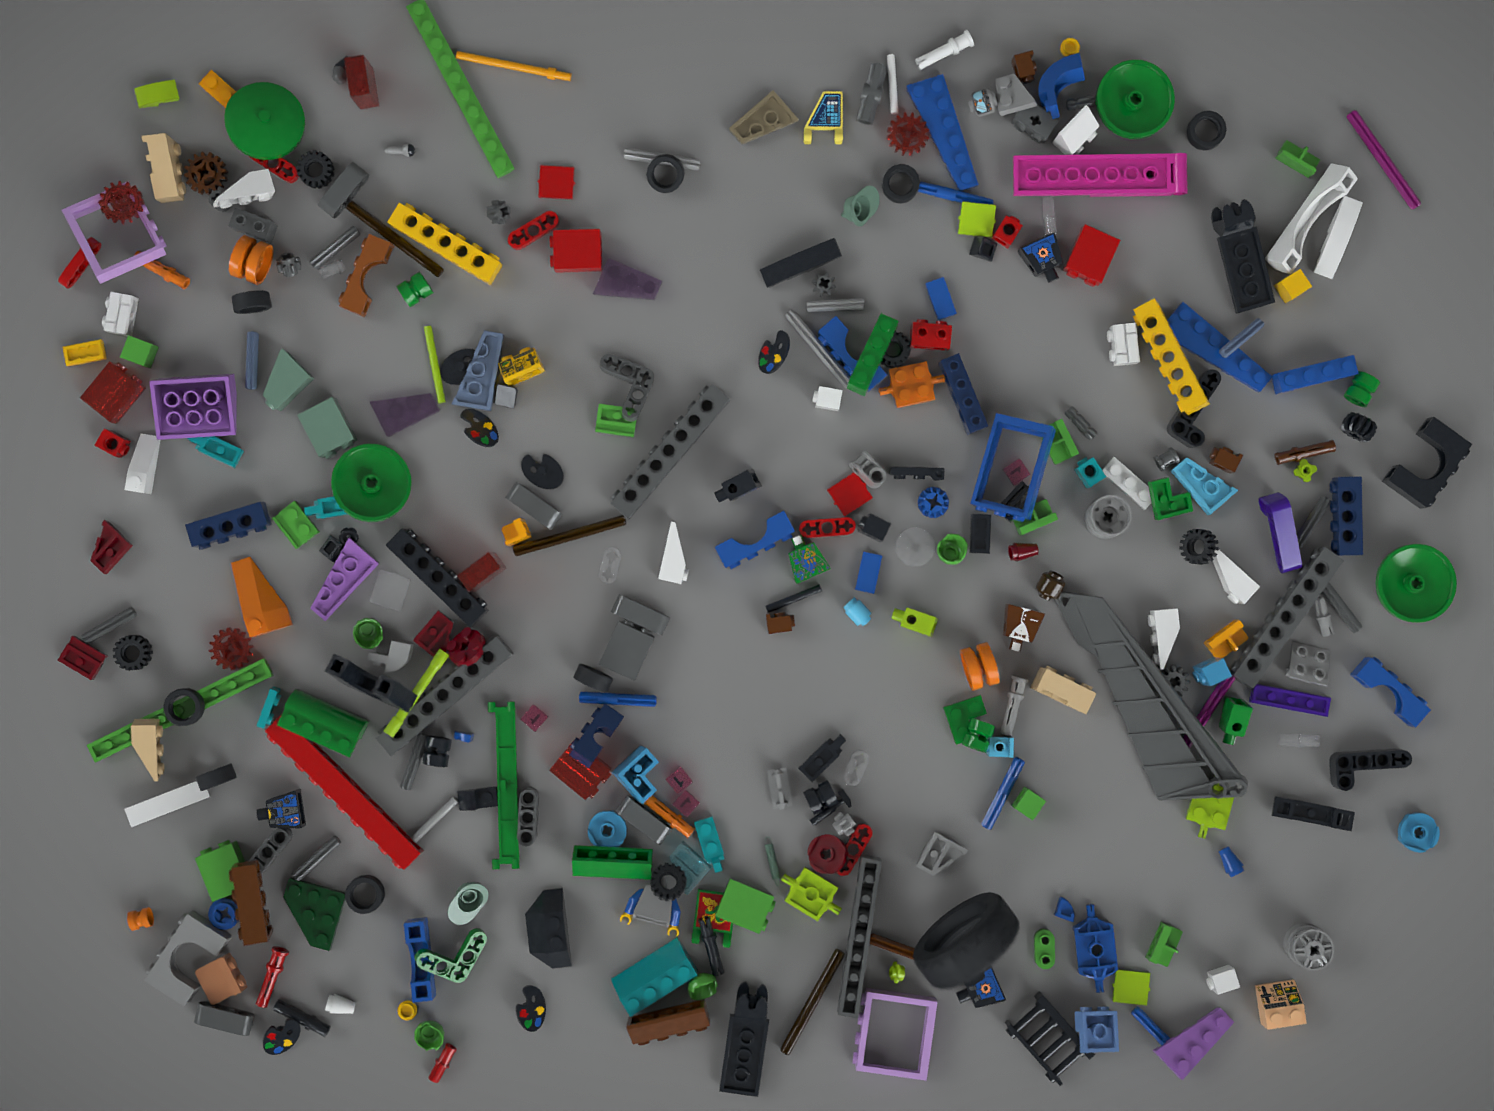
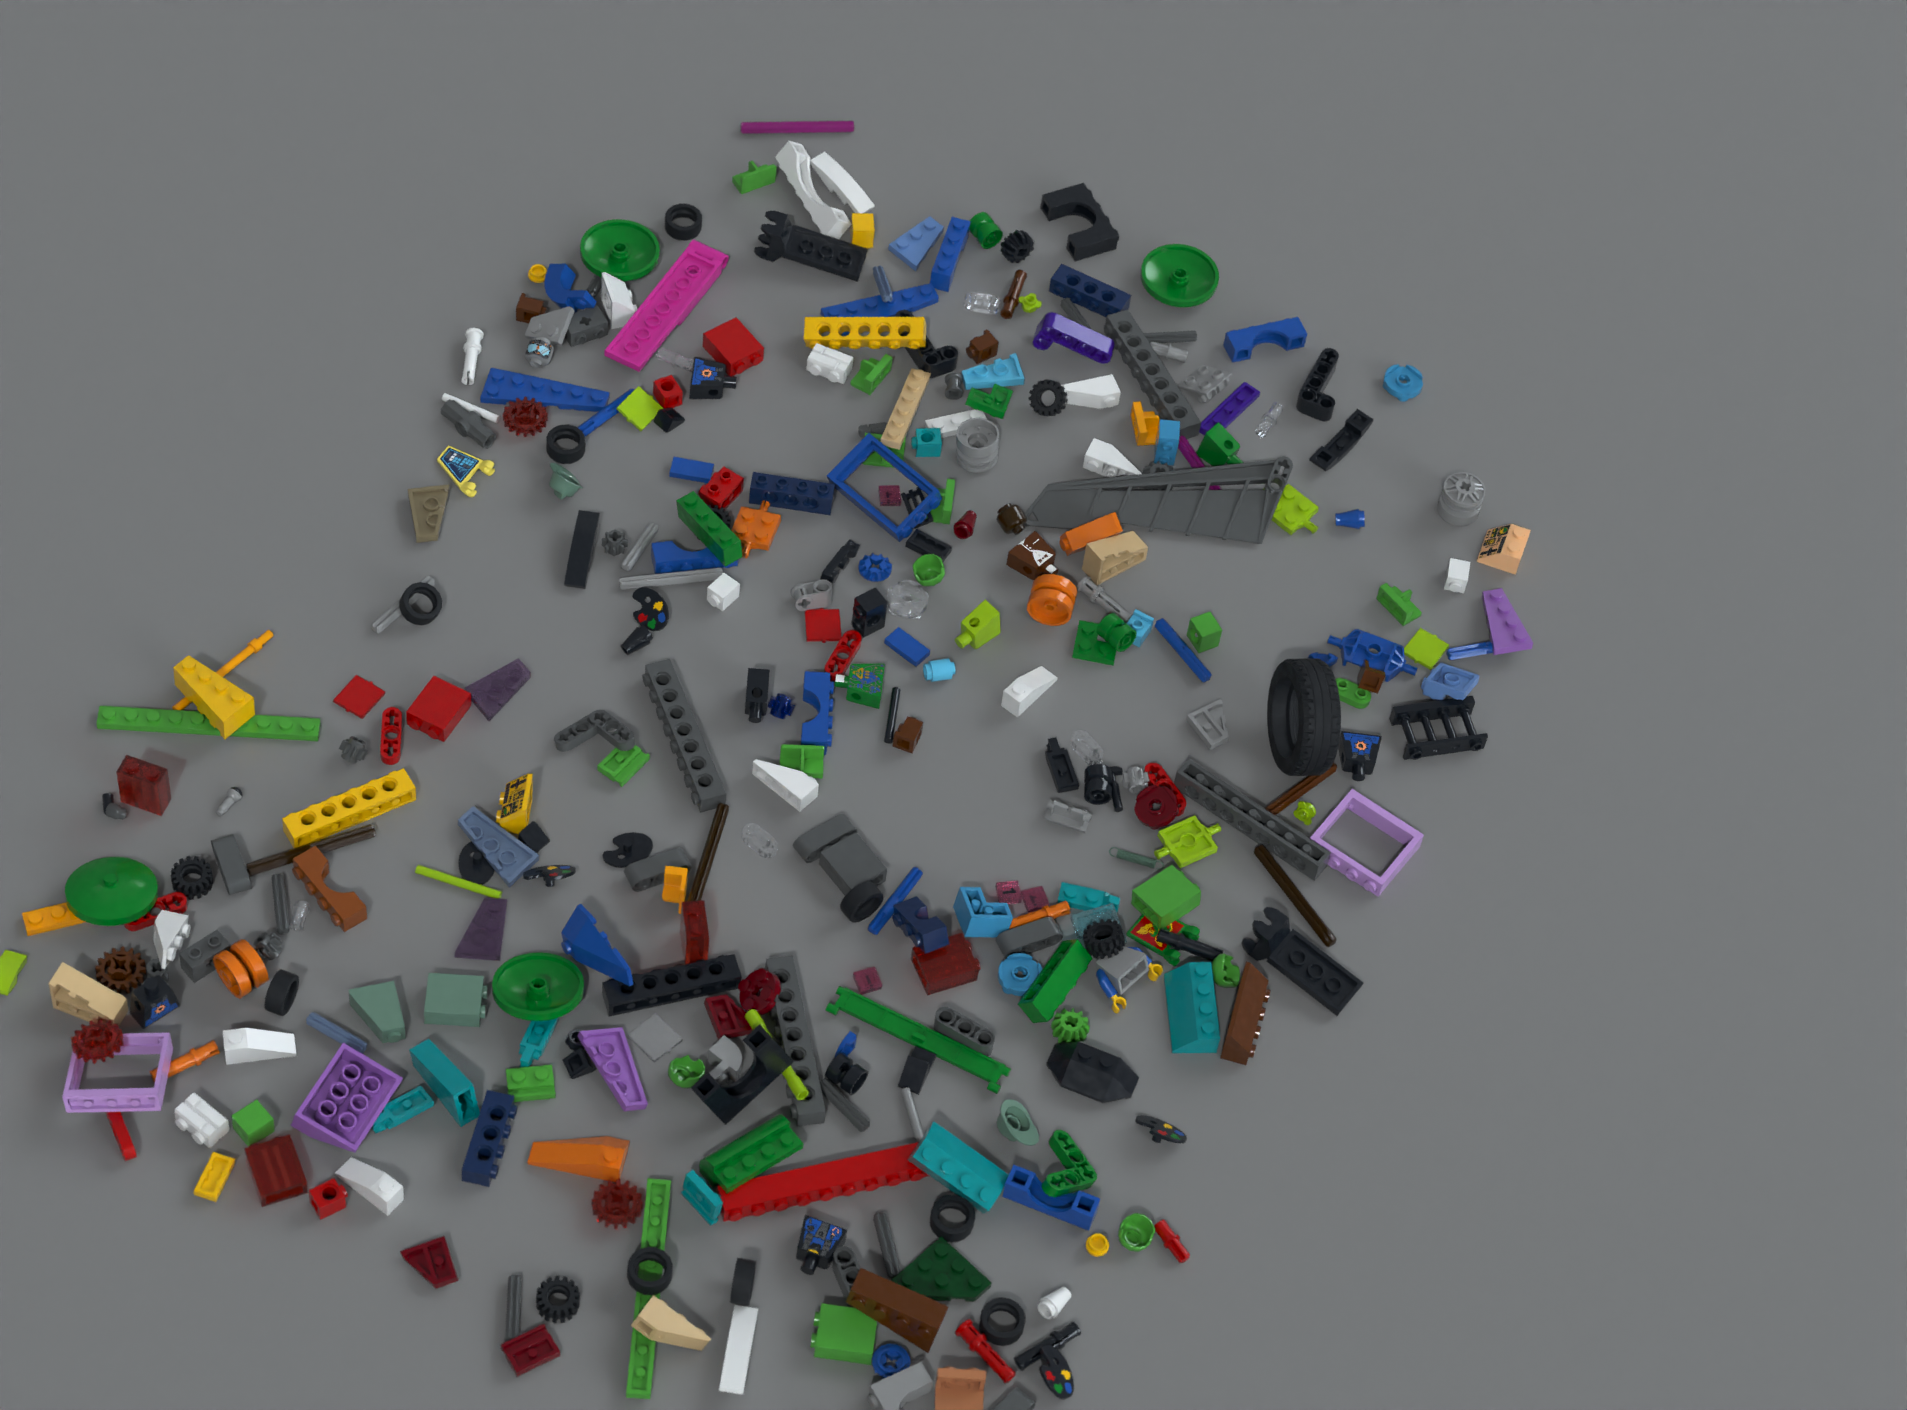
camera: 65 degrees left, 35 degrees down
(191, 214) = (152, 1001): none -> black torso
(205, 312) = (256, 1045): none -> white slope
(253, 464) = (446, 1081): none -> teal slope
(289, 985) = (1005, 1305): none -> black tyre
(397, 882) = (959, 1167): none -> teal slope
(414, 289) = (374, 855): green wheel -> none
(429, 494) = (592, 948): none -> blue wedge
(471, 83) = (214, 696): none -> yellow wedge
(574, 893) = (1070, 1026): none -> bright green gear
(700, 556) = (803, 758): none -> bright green panel
(740, 360) = (637, 639): none -> black cone
(743, 509) = (781, 706): none -> clear blue gear
(885, 692) = (1026, 690): none -> white slope
(1062, 960) = (1370, 678): none -> reddish brown panel
(1070, 660) = (1101, 528): none -> orange slope
(1111, 435) = (905, 409): none -> tan plate
(1137, 383) = (872, 373): none -> bright green panel
(1277, 432) = (982, 303): none -> clear beam
(1312, 337) = (916, 242): none -> medium blue wing

